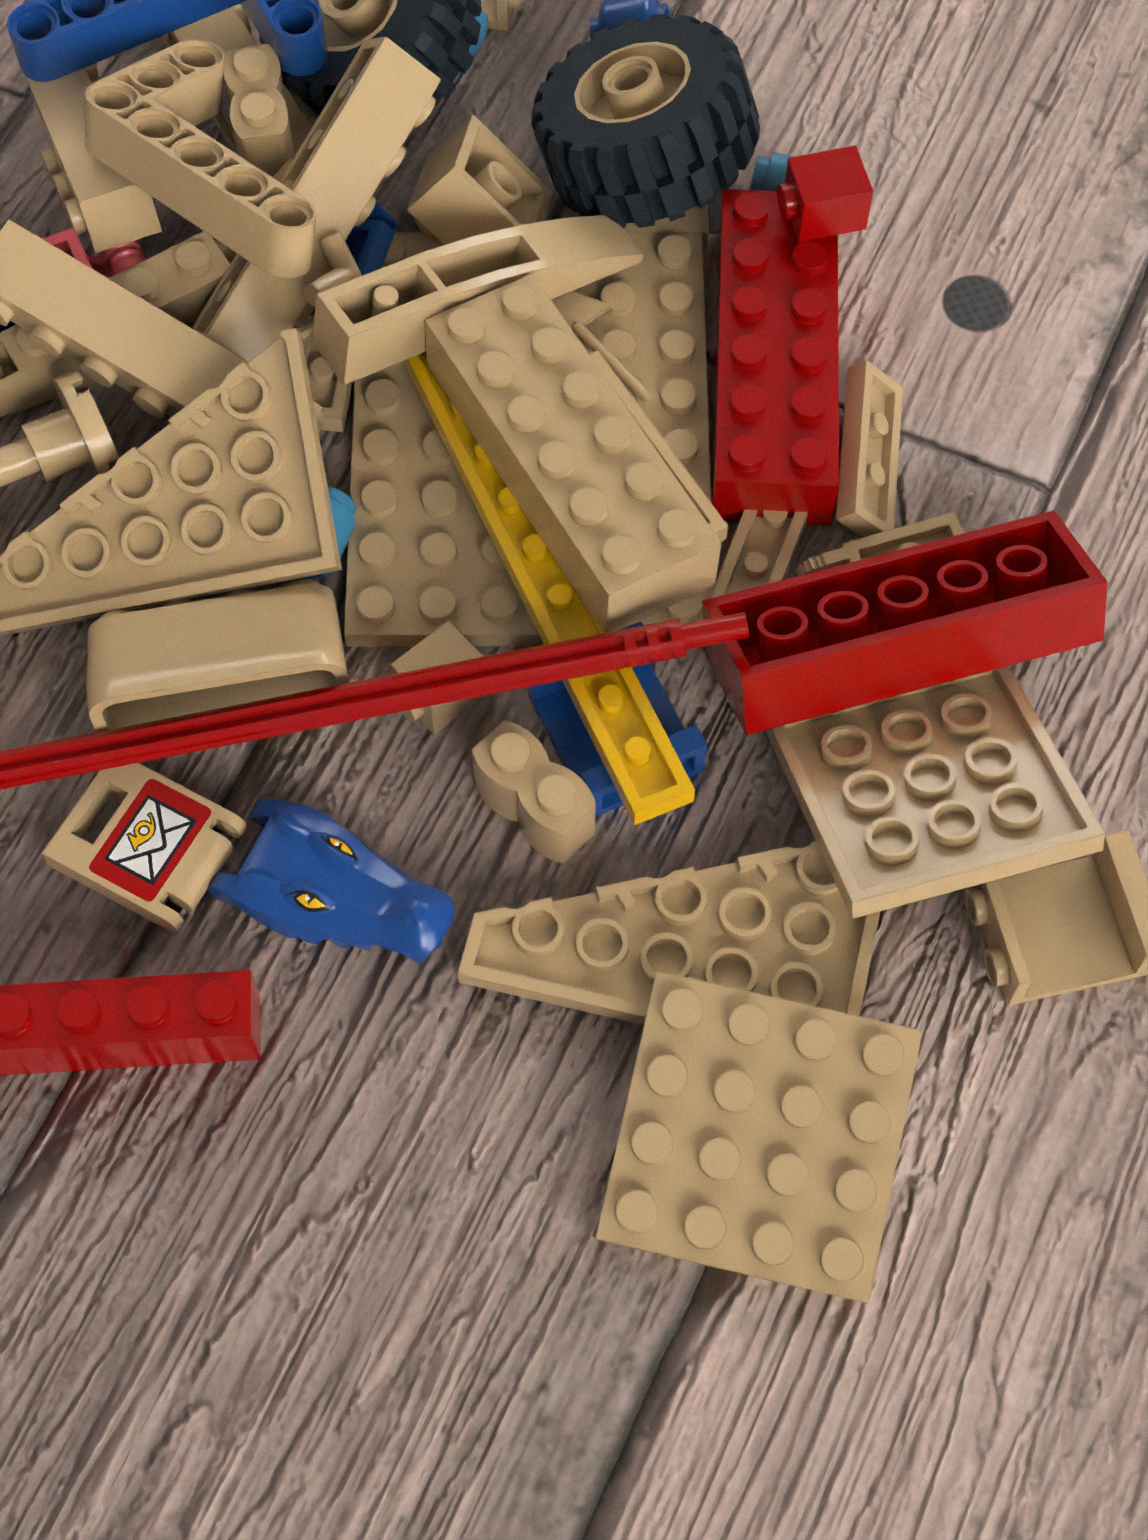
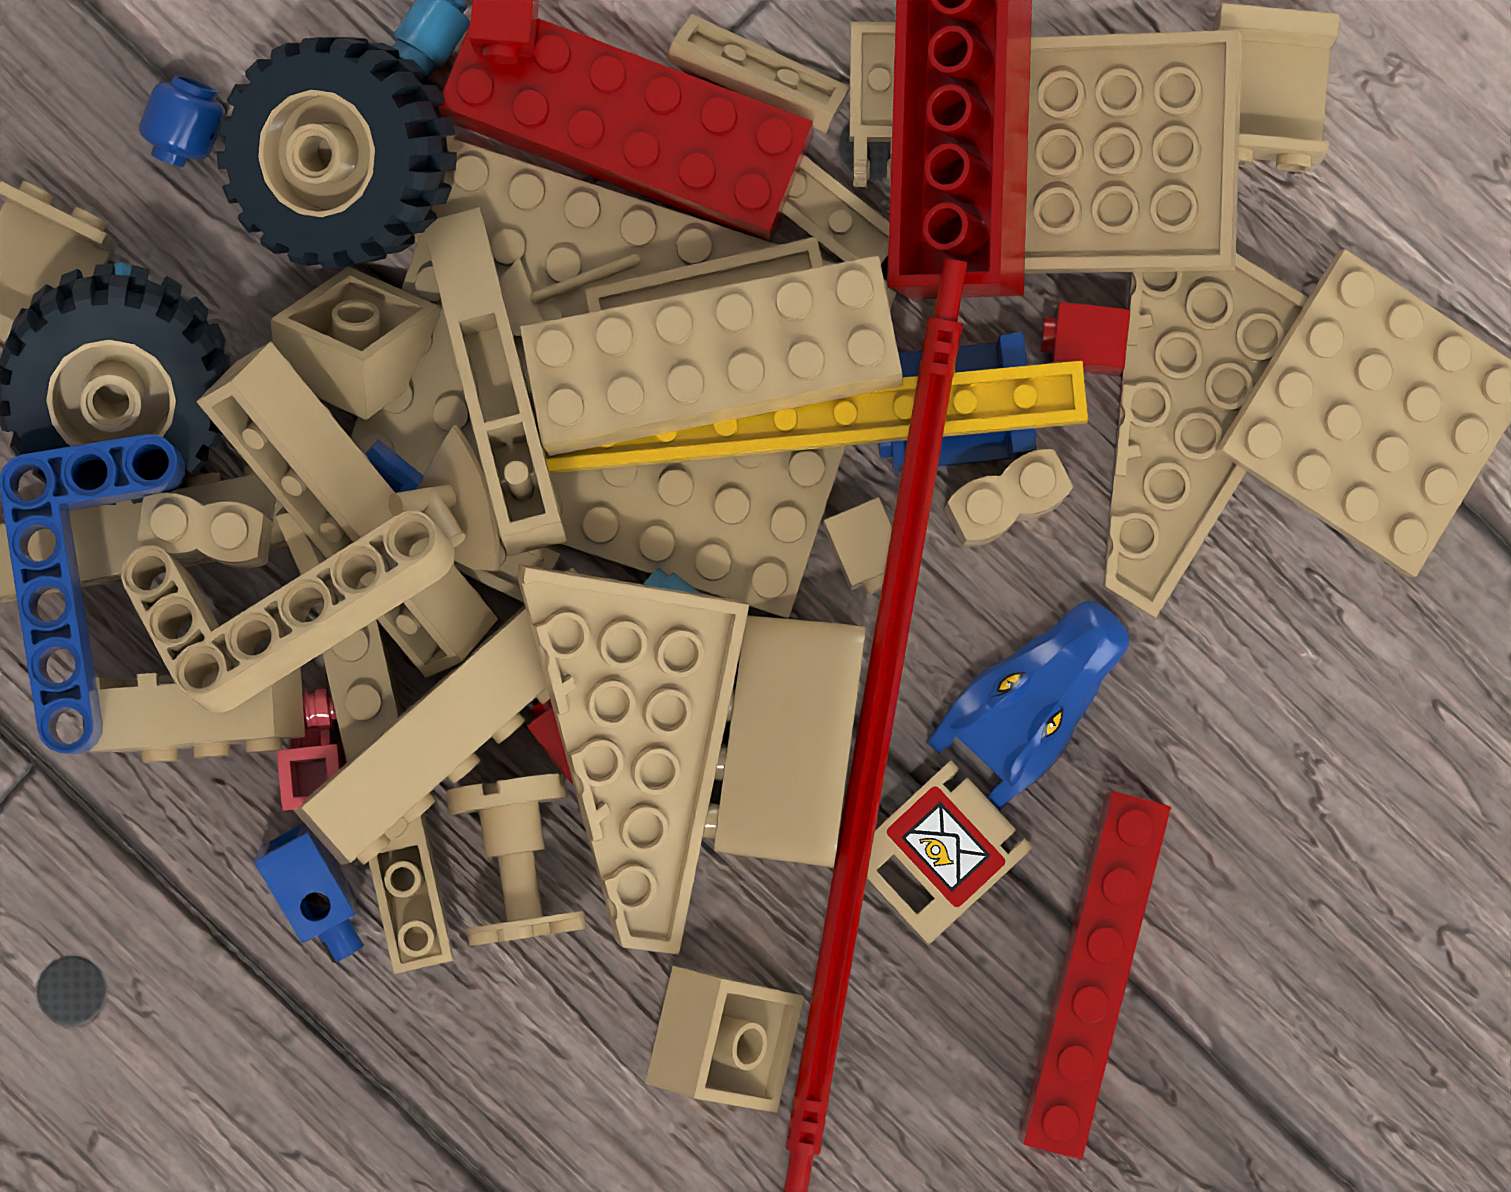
camera: 70 degrees left, 20 degrees up
(727, 817) = (1087, 335): none -> red brick

